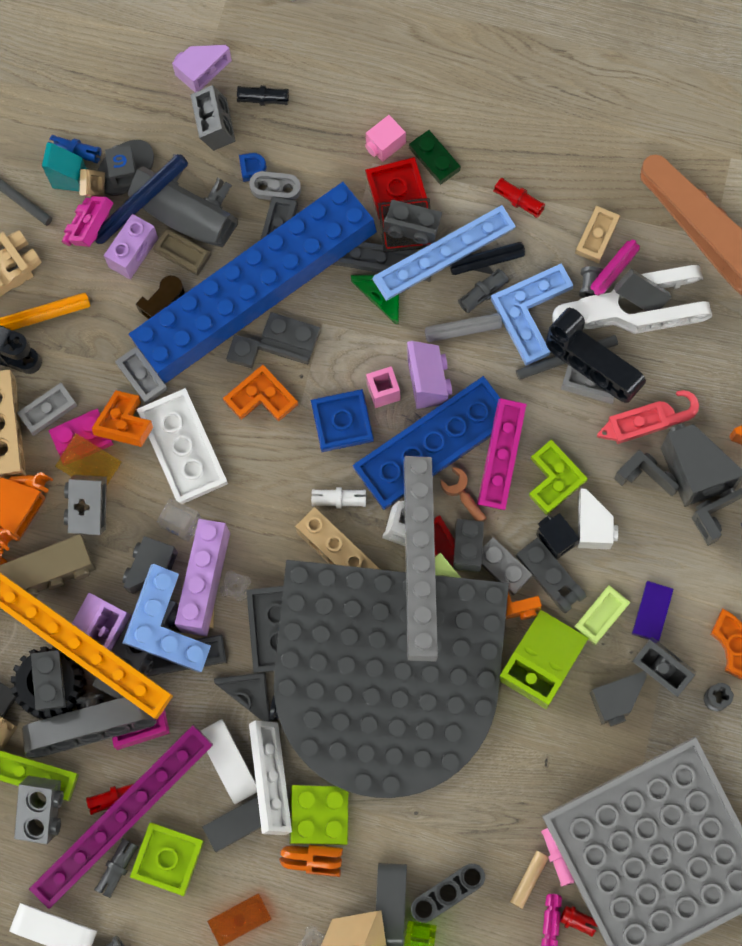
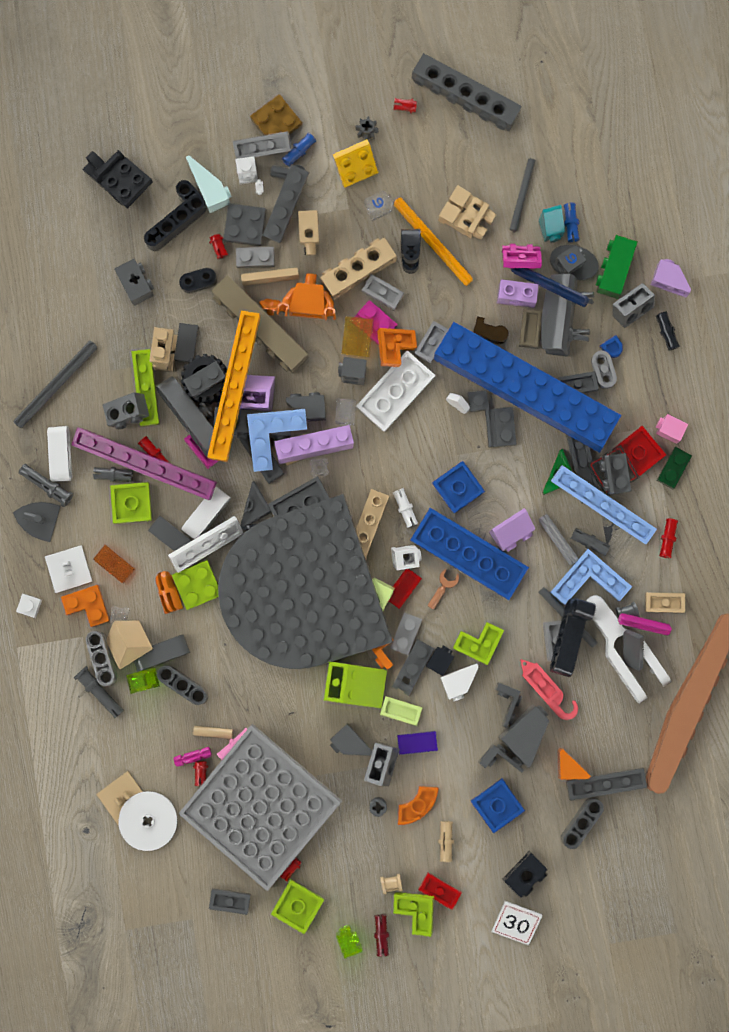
camera: 65 degrees right, 10 degrees up
(92, 183) = (550, 246): tan tile -> none
(93, 490) = (328, 348): brick -> none
(130, 485) = (352, 370): none -> dark grey brick
(155, 119) = (616, 266): none -> green brick
(233, 375) = (458, 402): none -> white tile
(259, 389) = (457, 426): orange plate -> none
(383, 387) = (491, 504): bright pink brick -> none
(420, 559) = (382, 578): light grey plate -> none
(468, 545) = (408, 605): dark grey plate -> none
(488, 258) = (615, 535): black axle -> none
(501, 454) = (479, 602): dark pink plate -> none

